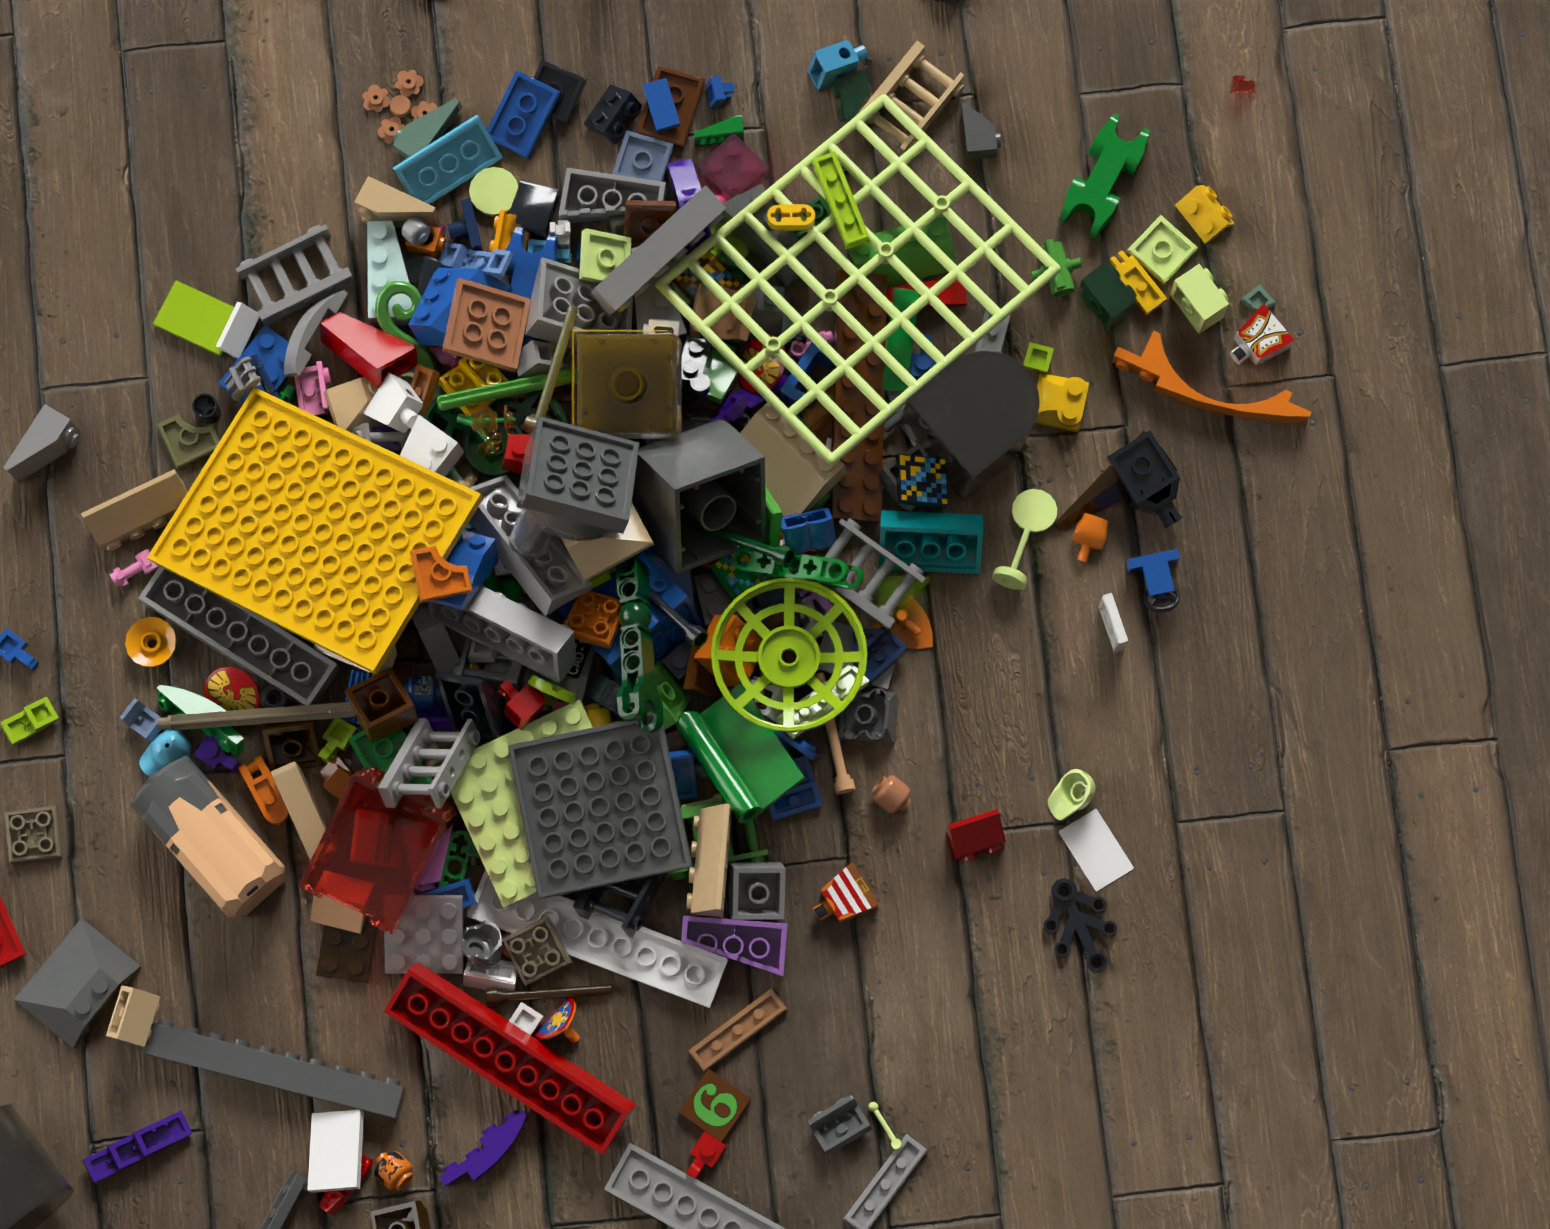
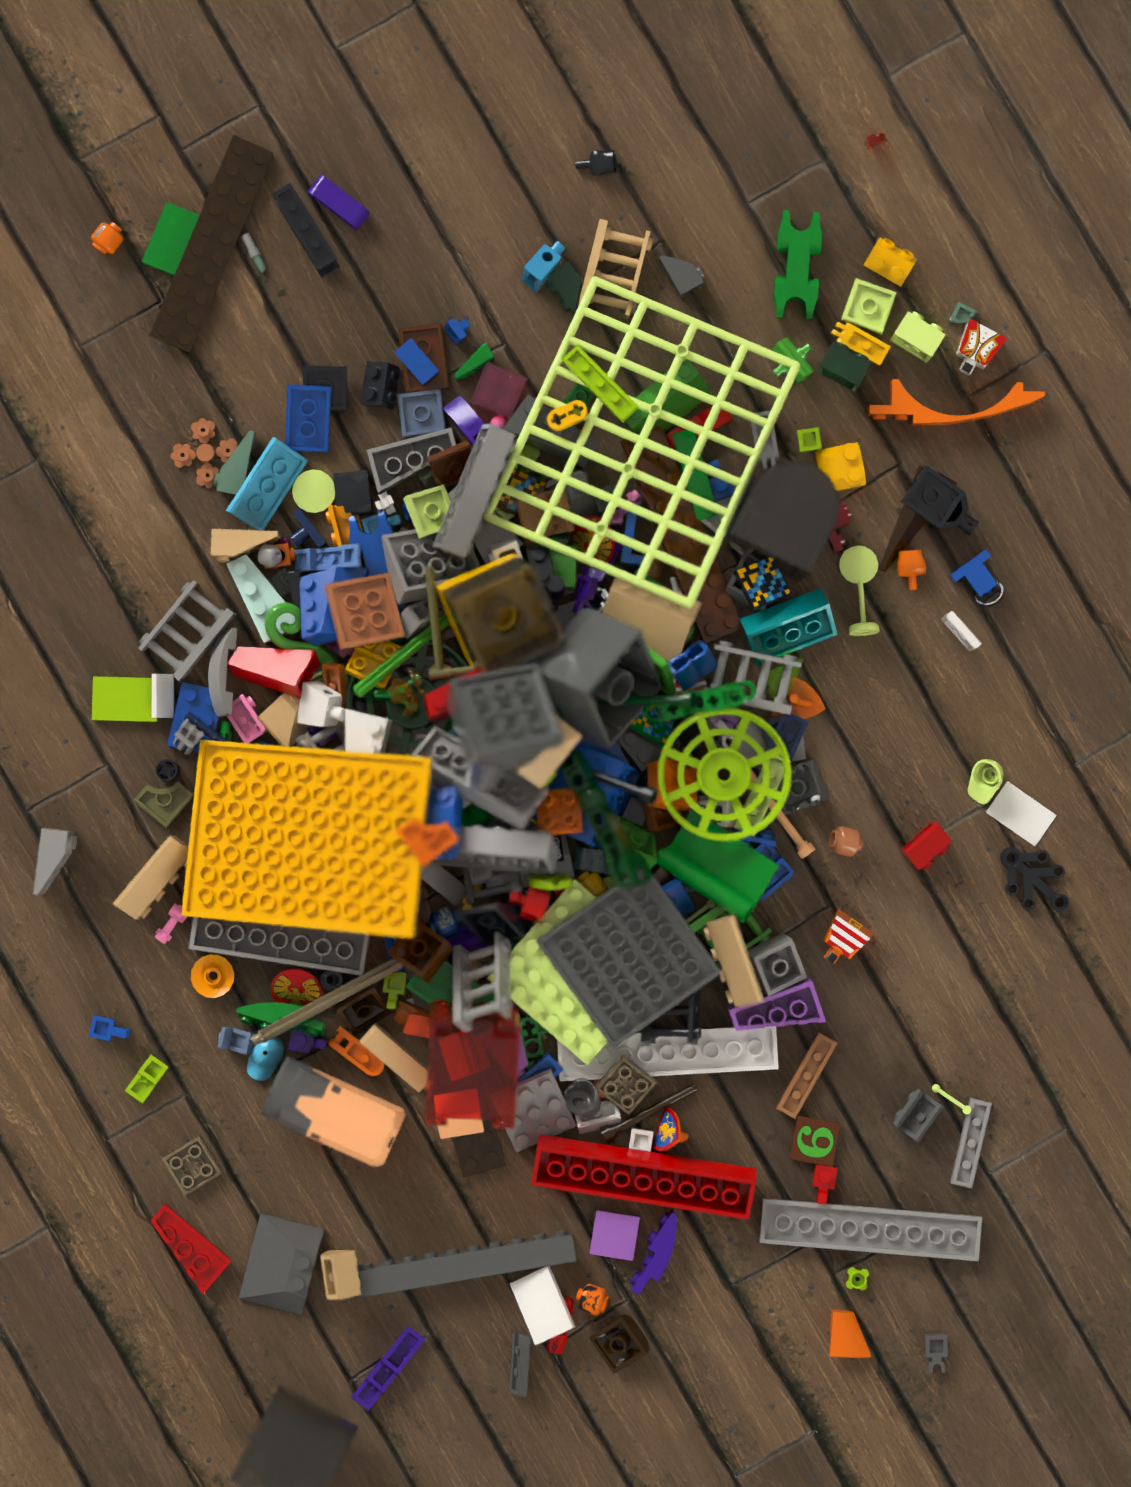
camera: 30 degrees left, 10 degrees up
(449, 1110) = (614, 1235): none -> medium lavender tile
(1032, 454) = (835, 539): none -> dark red slope

